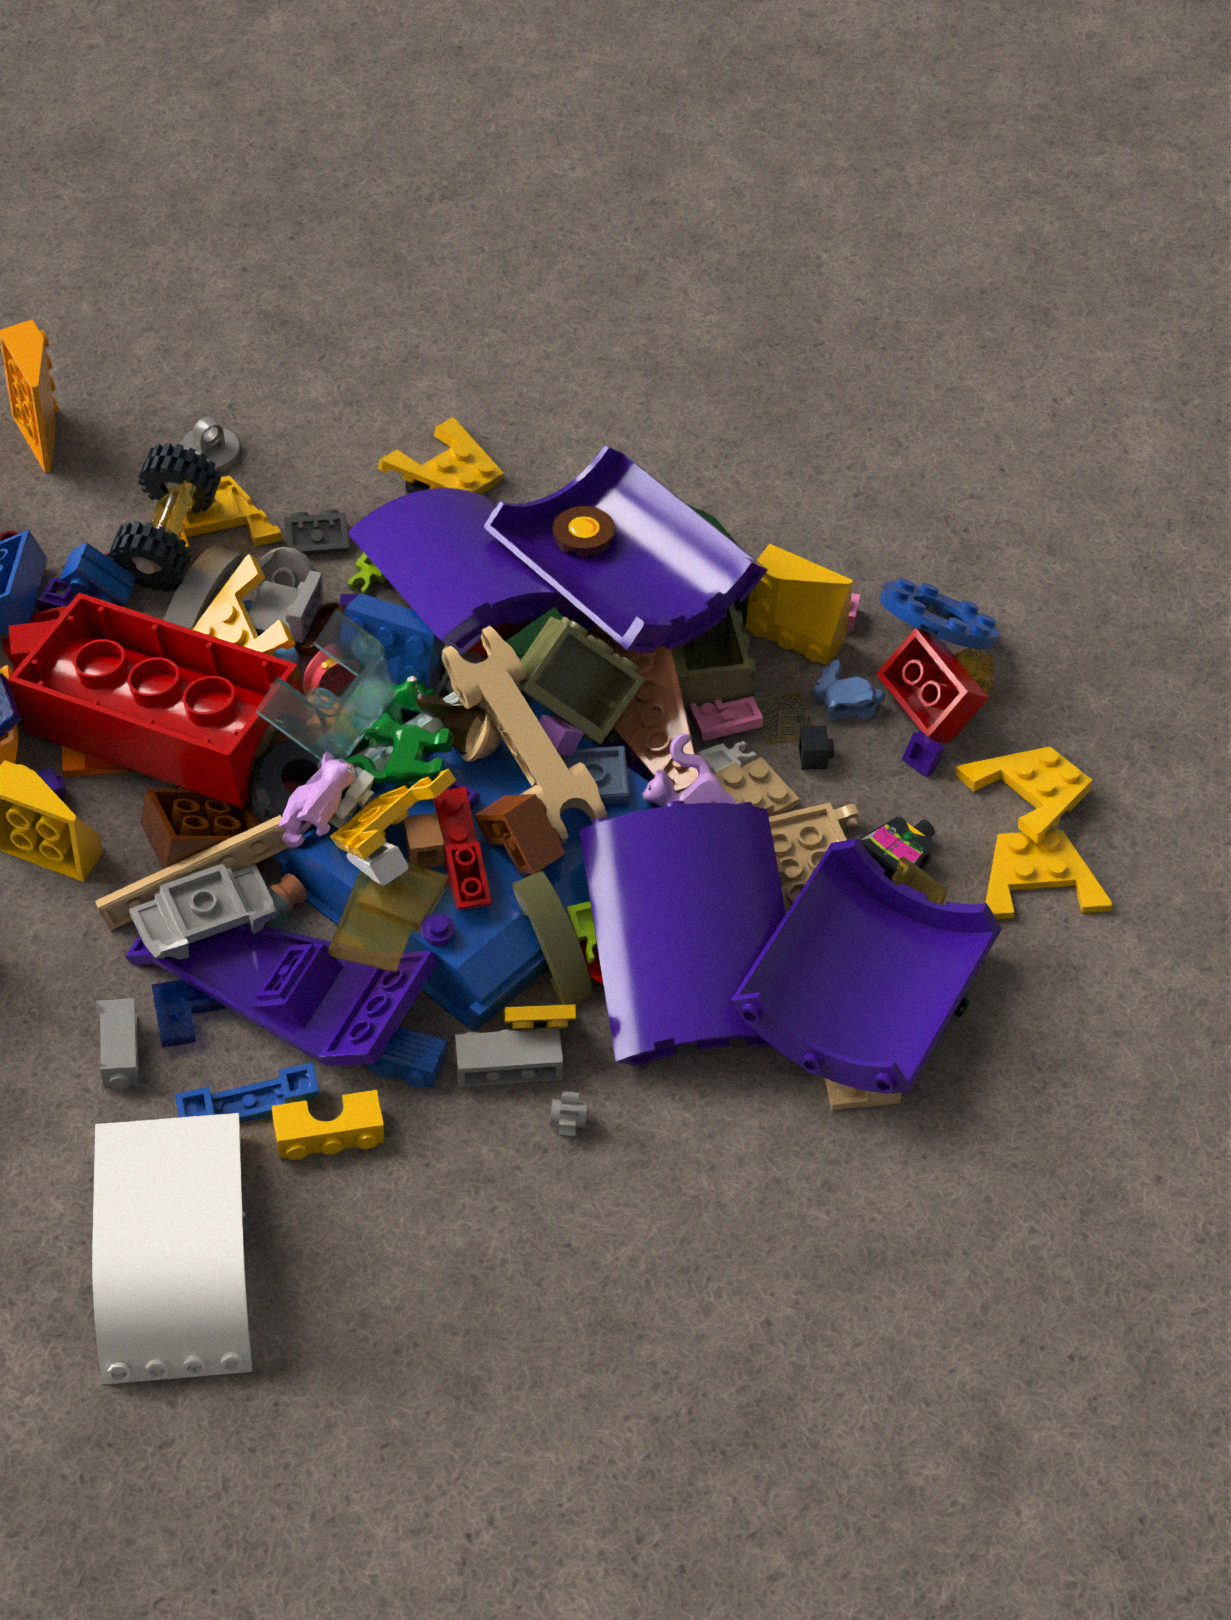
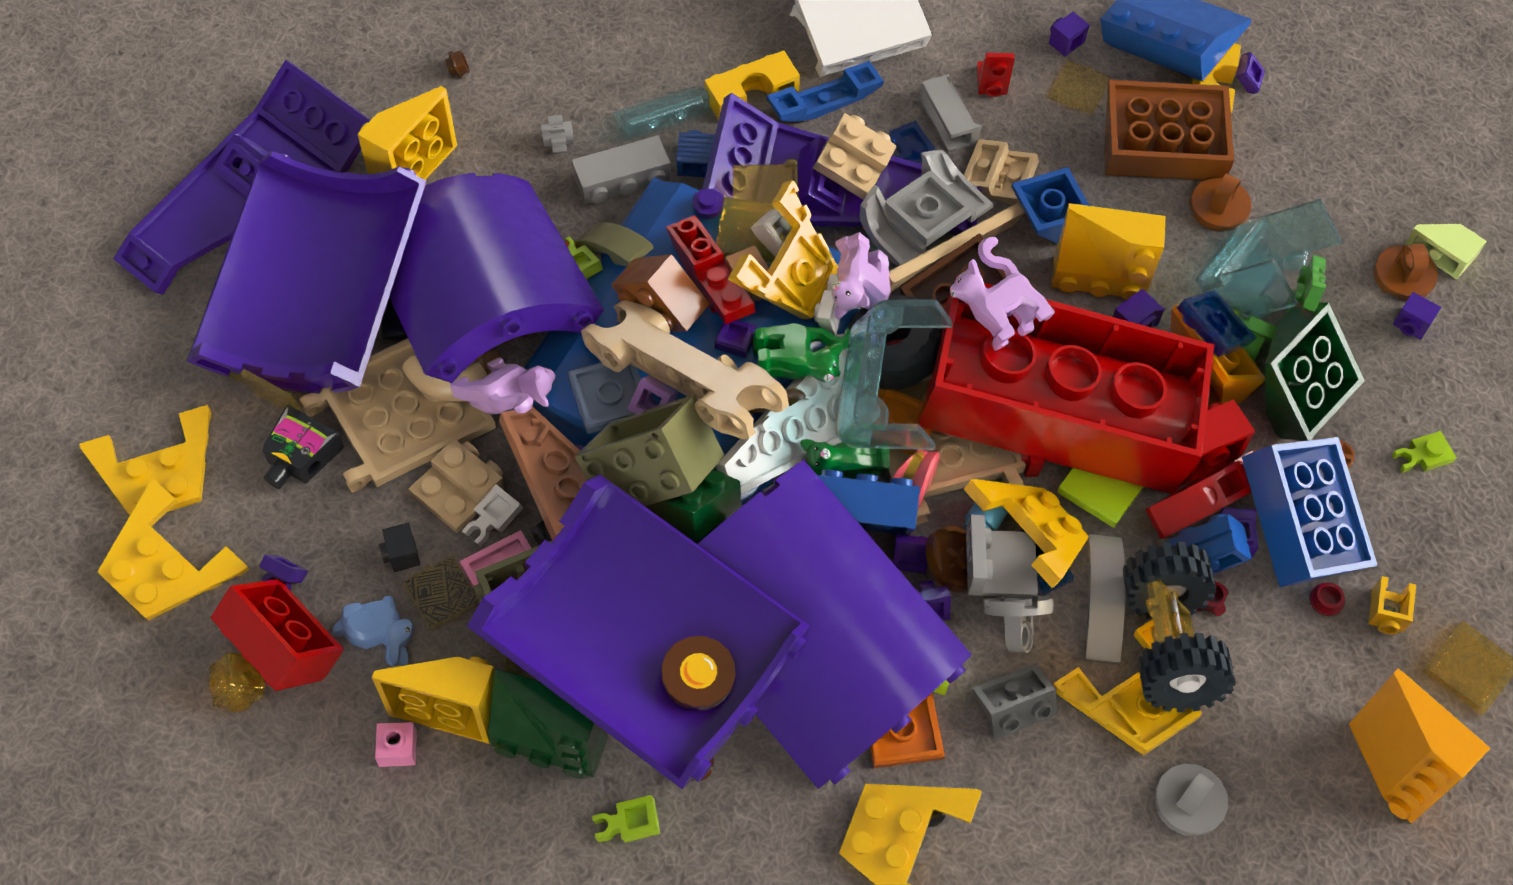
camera: 165 degrees right, 10 degrees up
(48, 1070) = (995, 73): none -> red bracket
(65, 901) = (1047, 200): none -> blue slope
(93, 973) = (987, 165): none -> tan slope
(201, 713) = (1007, 298): none -> lavender animal
(256, 972) = (855, 155): none -> tan plate
(440, 1123) = (662, 112): none -> clear light blue panel
(553, 1015) = (602, 194): yellow plate -> none
(664, 1237) = (457, 63): none -> reddish brown plate
(740, 1102) = (410, 135): none -> yellow slope
(912, 1152) = (203, 209): none -> dark purple wing
(966, 629) = (318, 705): blue plate -> none

